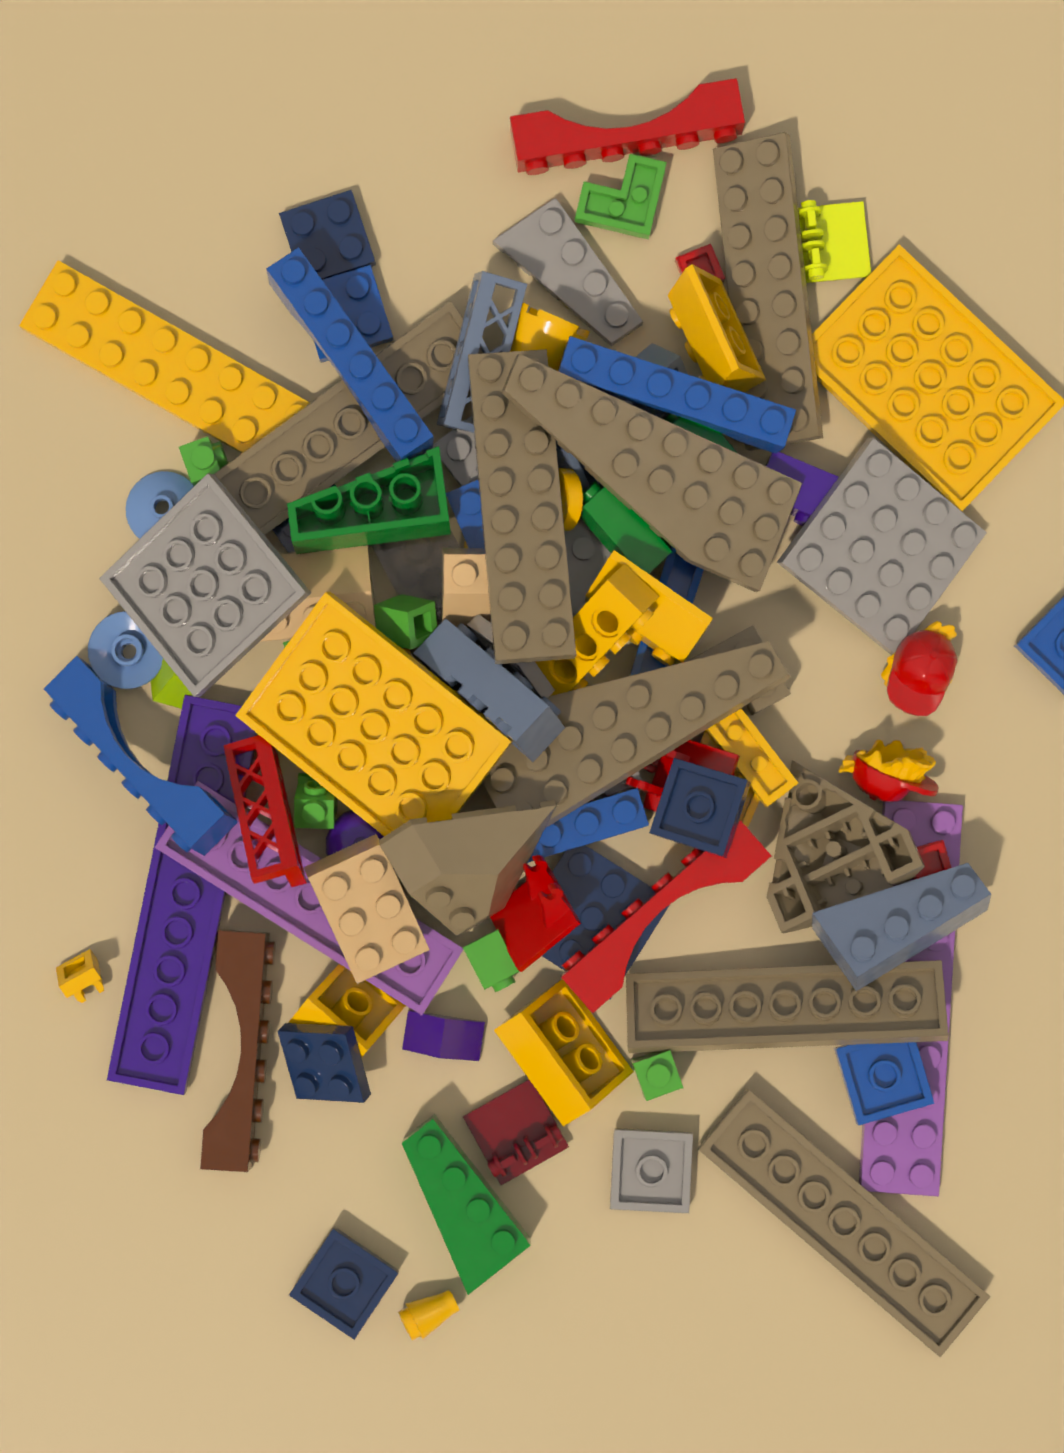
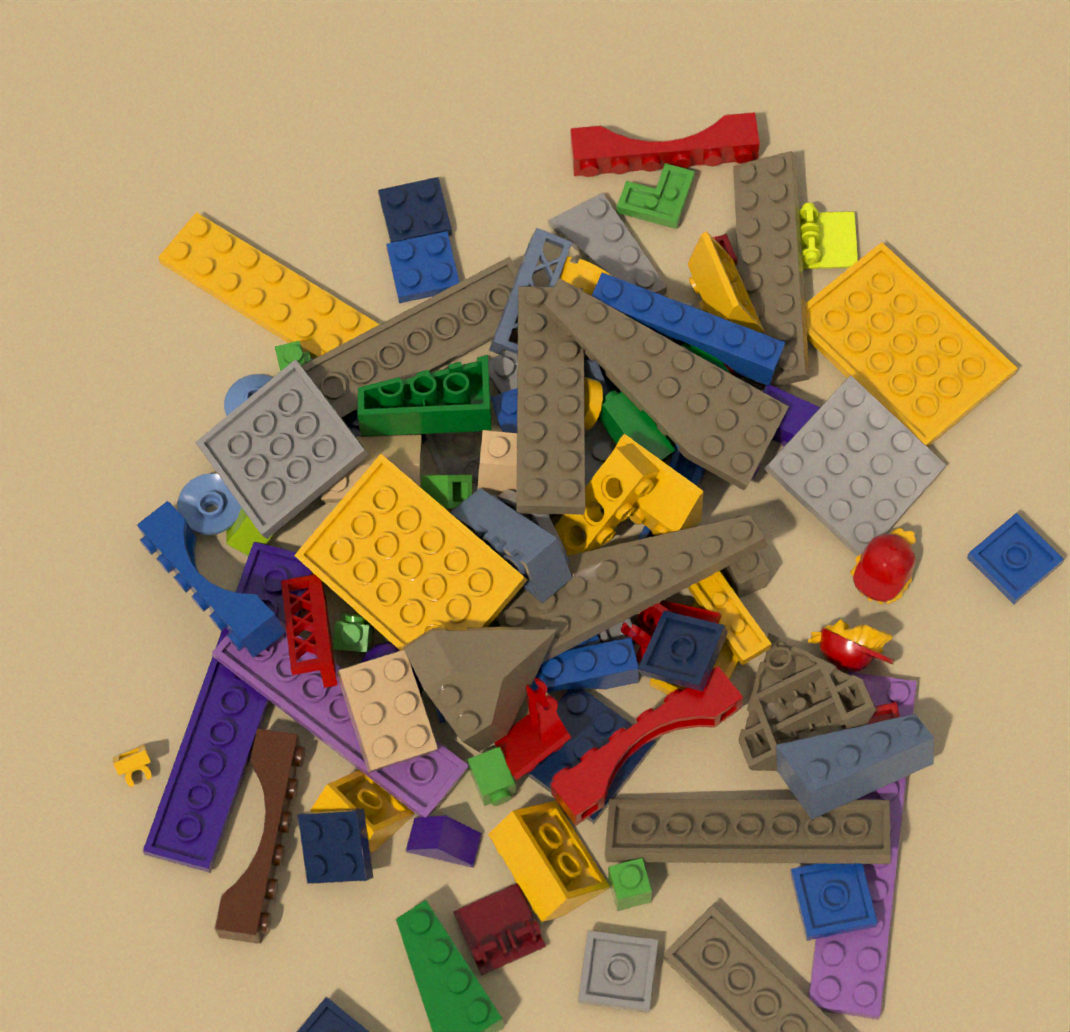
camera: 15 degrees right, 20 degrees down
(351, 356) = (402, 255): blue arch -> none

